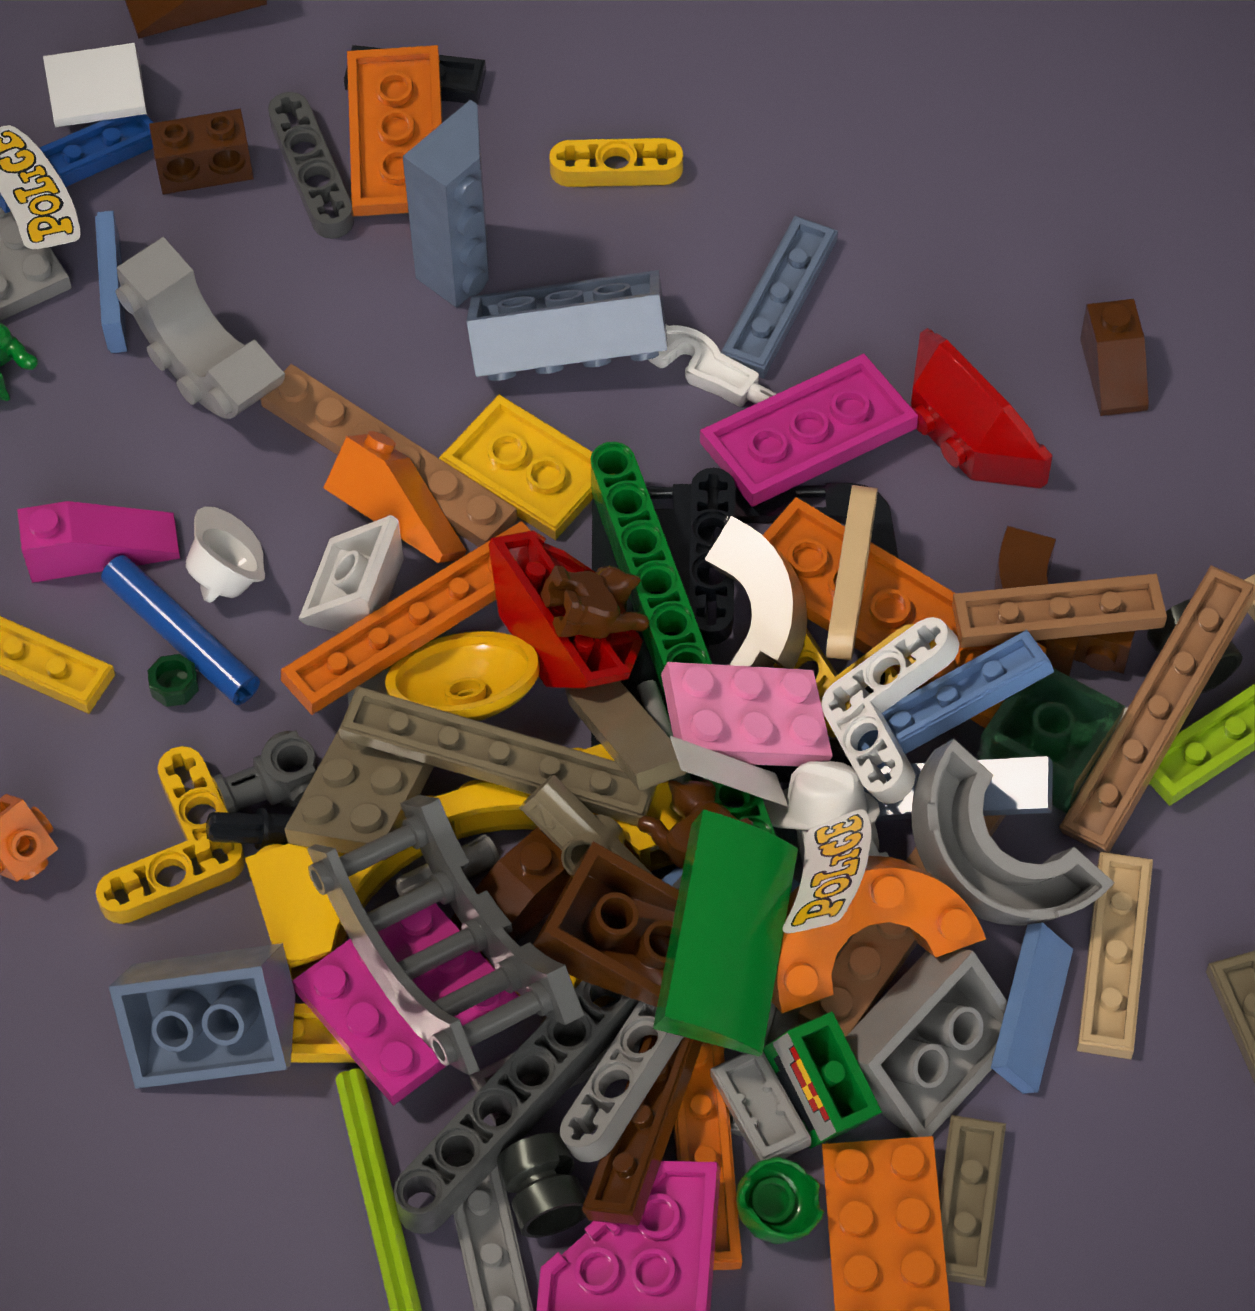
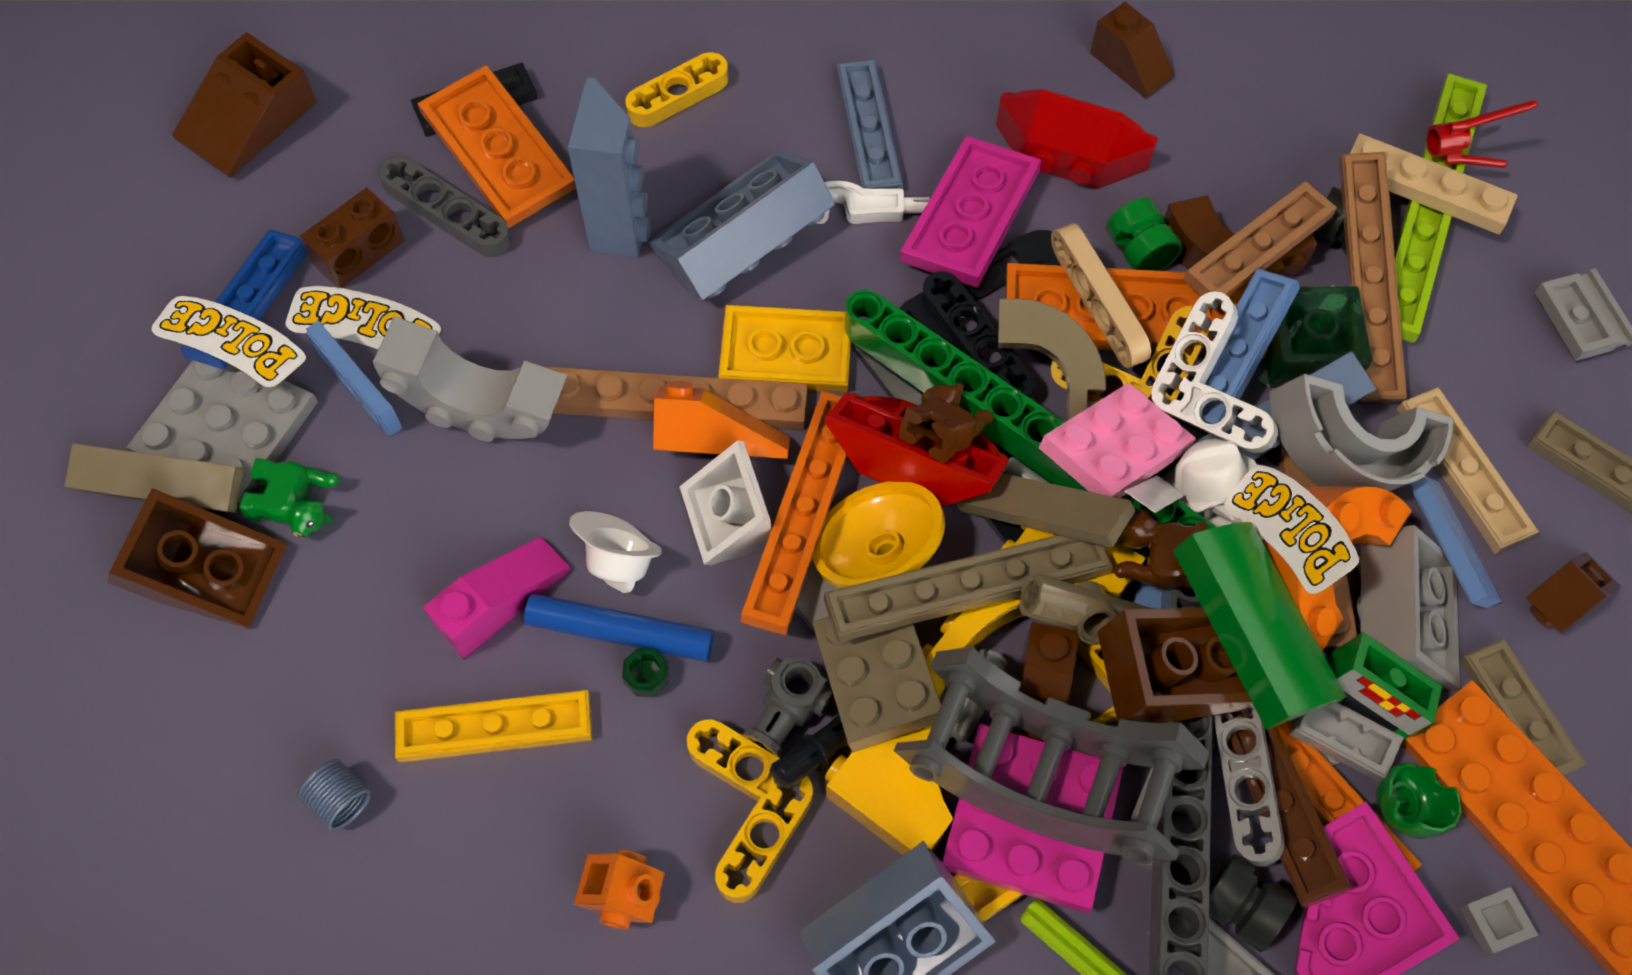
camera: 35 degrees left, 5 degrees up
(95, 85) = (225, 229): white slope -> none
(148, 215) = (350, 314): none -> sticker
(962, 546) = (1143, 237): none -> green wheel
(1114, 1121) = (1571, 593): none -> reddish brown slope

